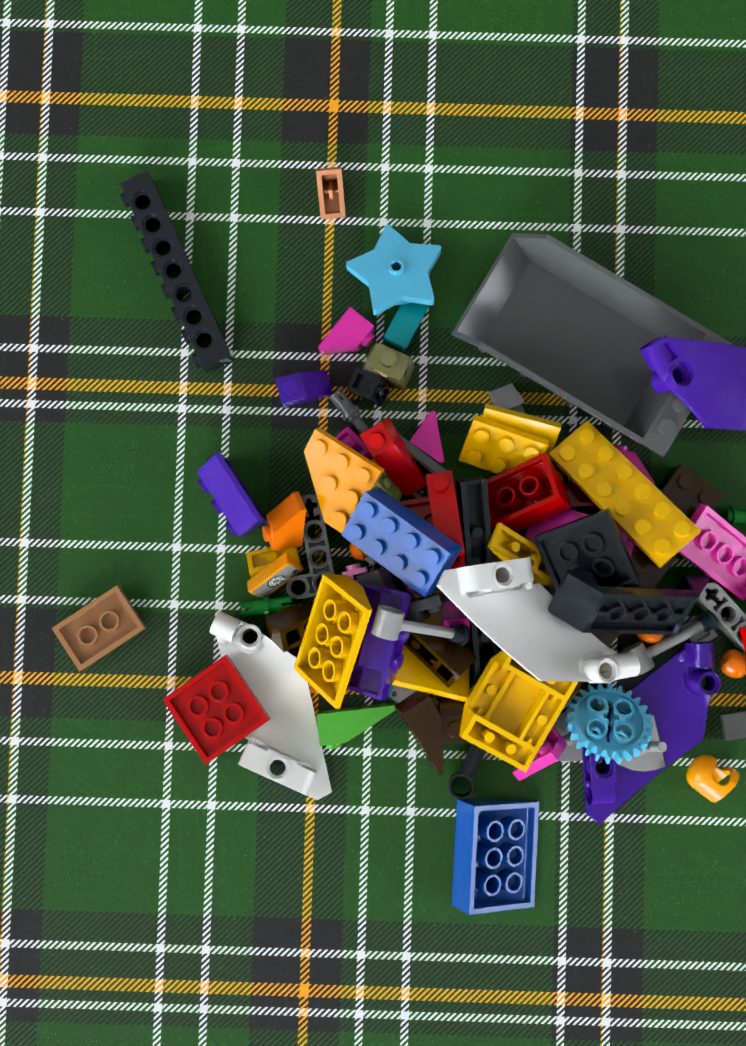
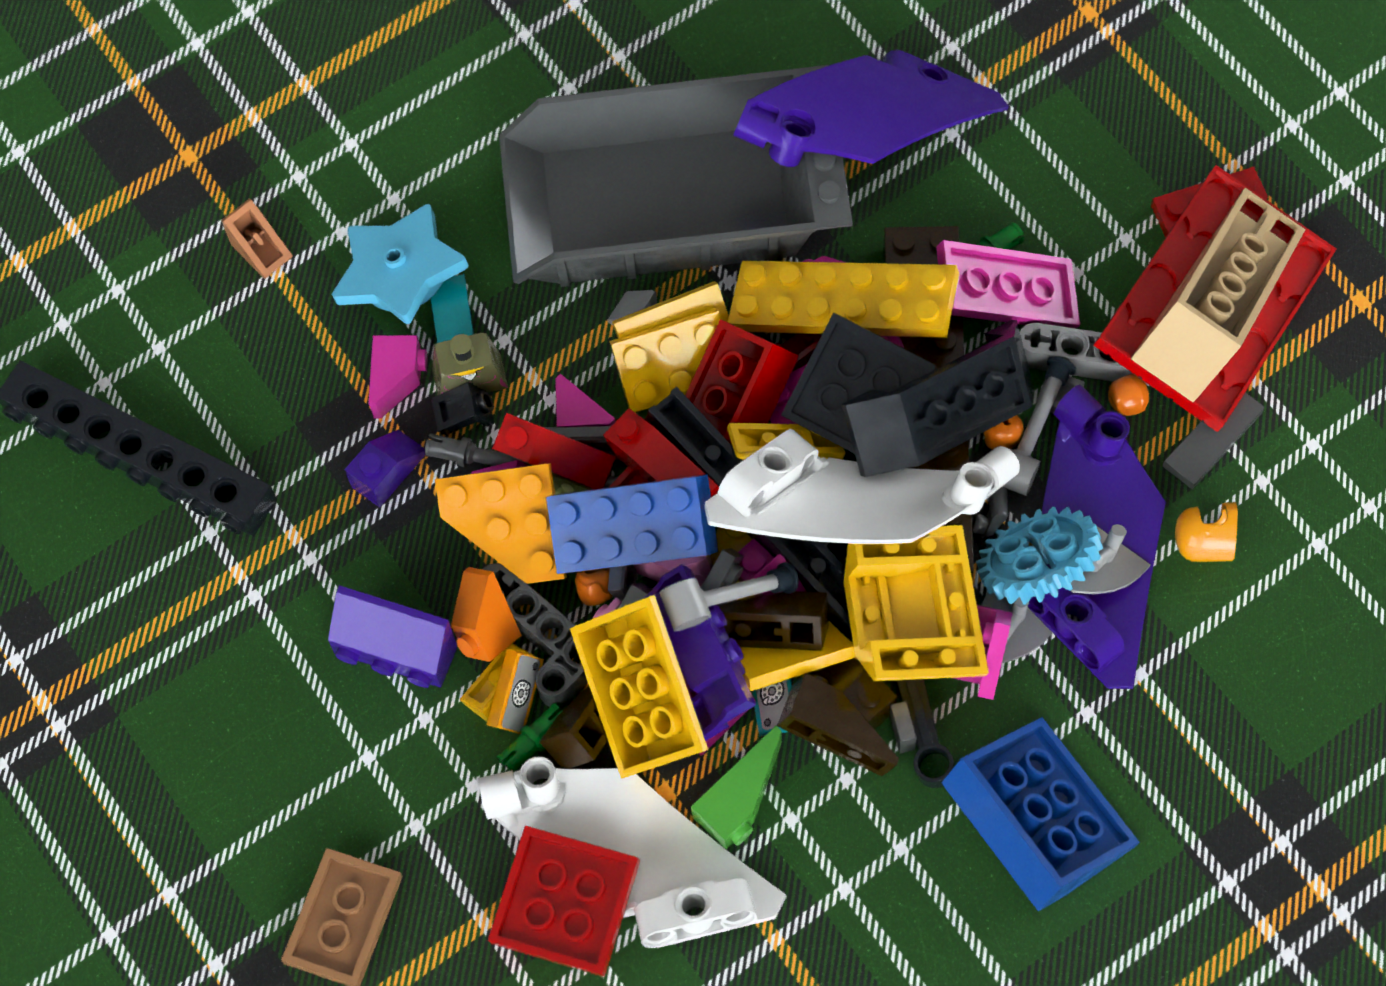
camera: 35 degrees left, 20 degrees down
(461, 754) = (902, 727): none -> flat silver tile

